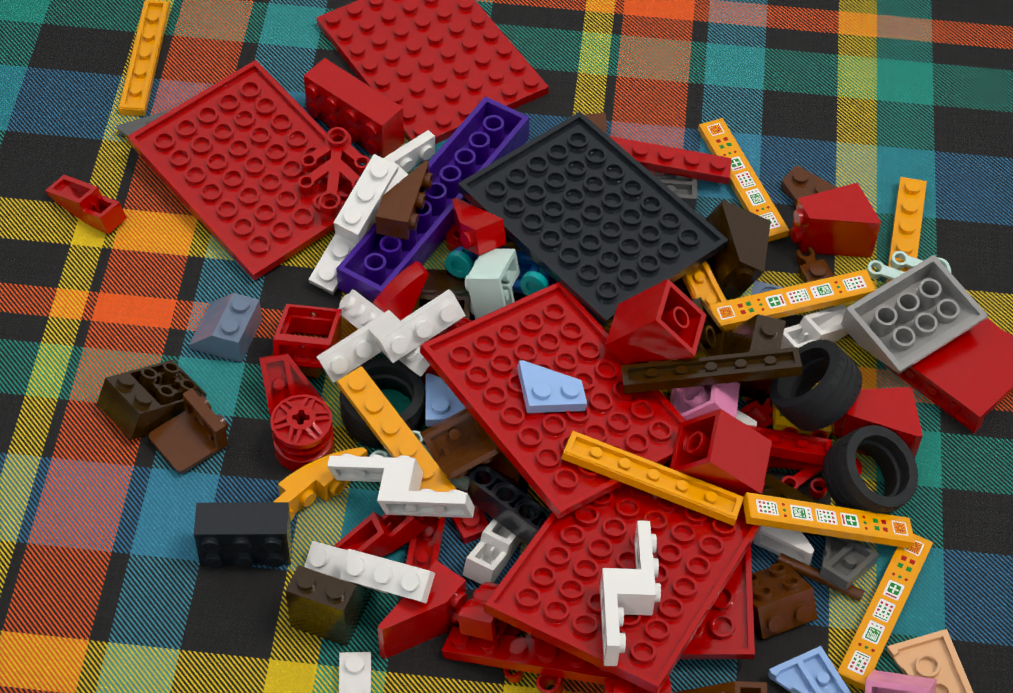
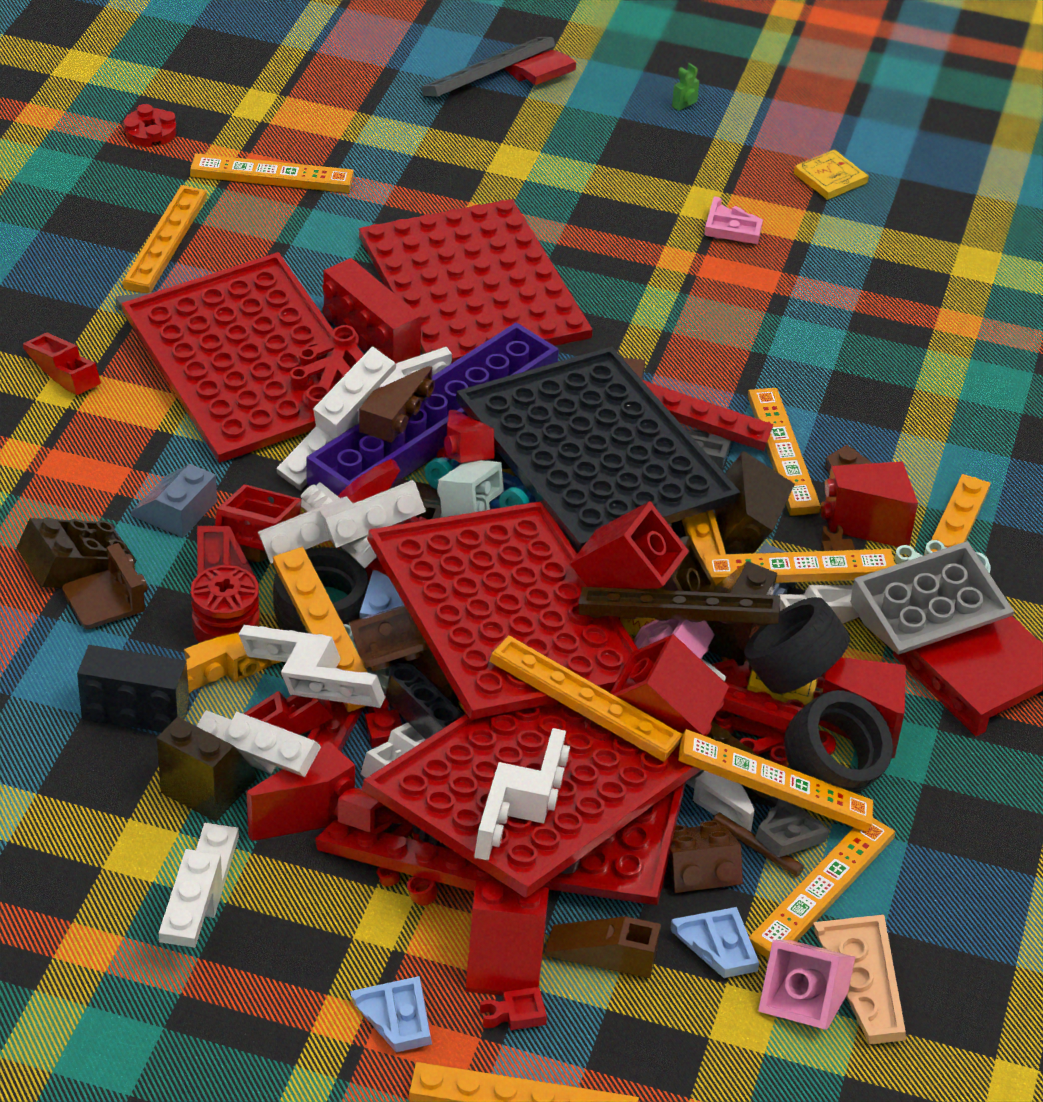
camera: 10 degrees right, 10 degrees down
(550, 390) = (497, 596): light blue wing -> none

